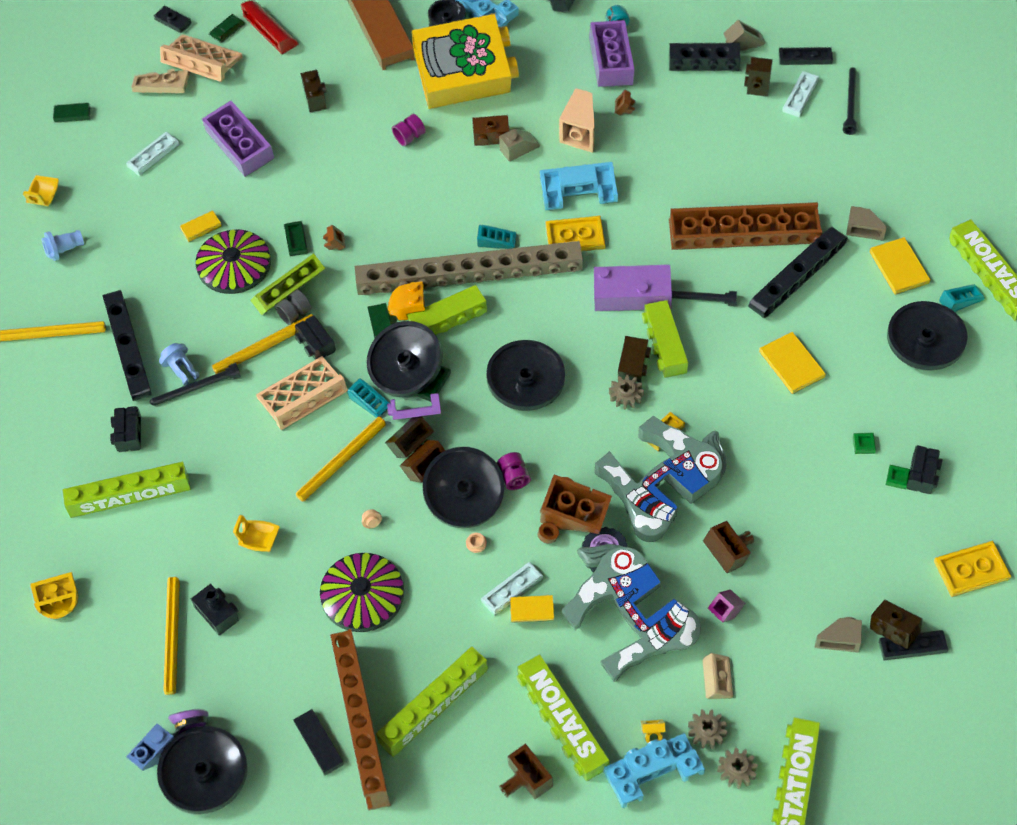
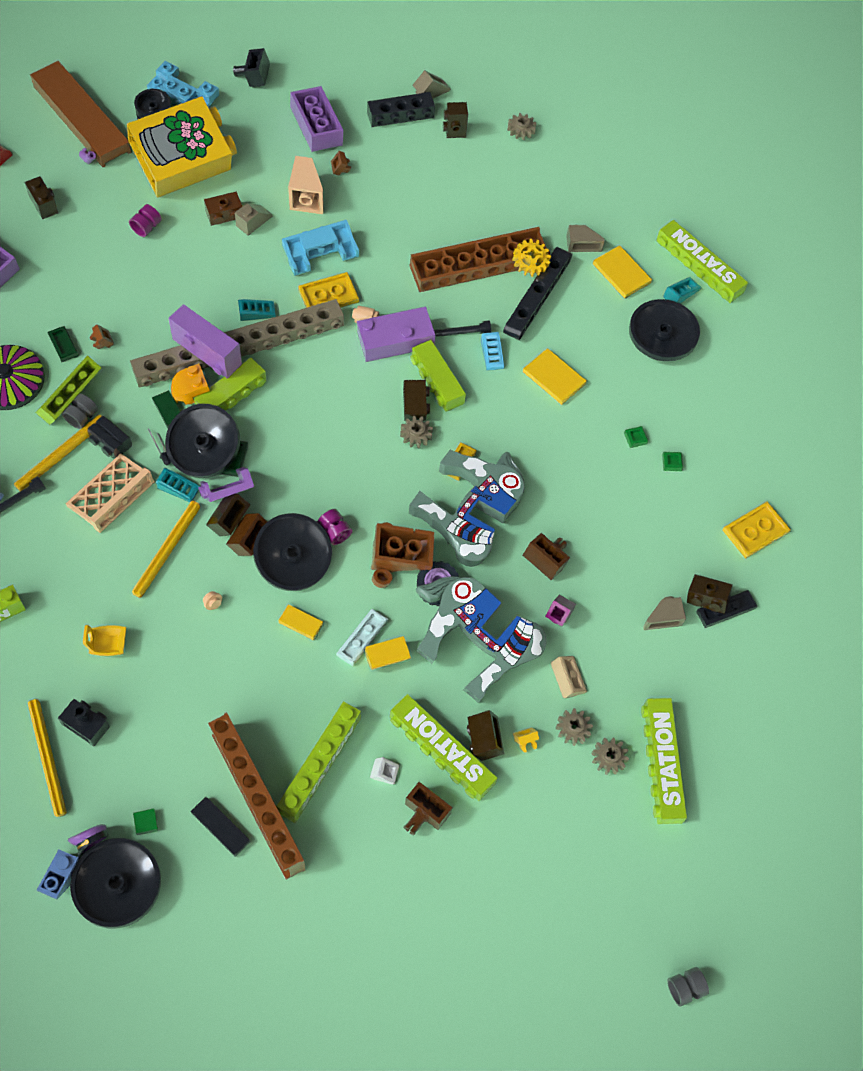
camera: 25 degrees left, 5 degrees up
(247, 719) = (145, 821): none -> green tile
(362, 592) = (222, 672): dish -> none
(363, 366) = (163, 456): none -> piece
(369, 57) = (87, 156): none -> medium lavender arm
(432, 260) = (205, 341): none -> medium lavender brick
(453, 559) = (300, 622): none -> yellow tile
(476, 542) = (317, 601): light nougat plate -> none
(497, 727) = (384, 770): none -> white slope
(525, 375) = (321, 434): black dish -> none
(605, 260) = (362, 313): none -> light nougat brick
(609, 715) = (485, 735): none -> dark brown brick
(617, 13) = (311, 80): teal head -> none
(649, 763) = (532, 770): medium azure bracket -> none
(732, 312) = (492, 340): none -> medium azure slope
(789, 235) = (533, 256): none -> yellow gear
(800, 94) = (494, 130): light aqua tile -> none
(805, 56) = (489, 95): black tile -> none
(831, 94) = (521, 126): none -> dark tan gear
(850, 124) = (545, 152): black piece -> none
(923, 469) = (693, 449): black brick -> none

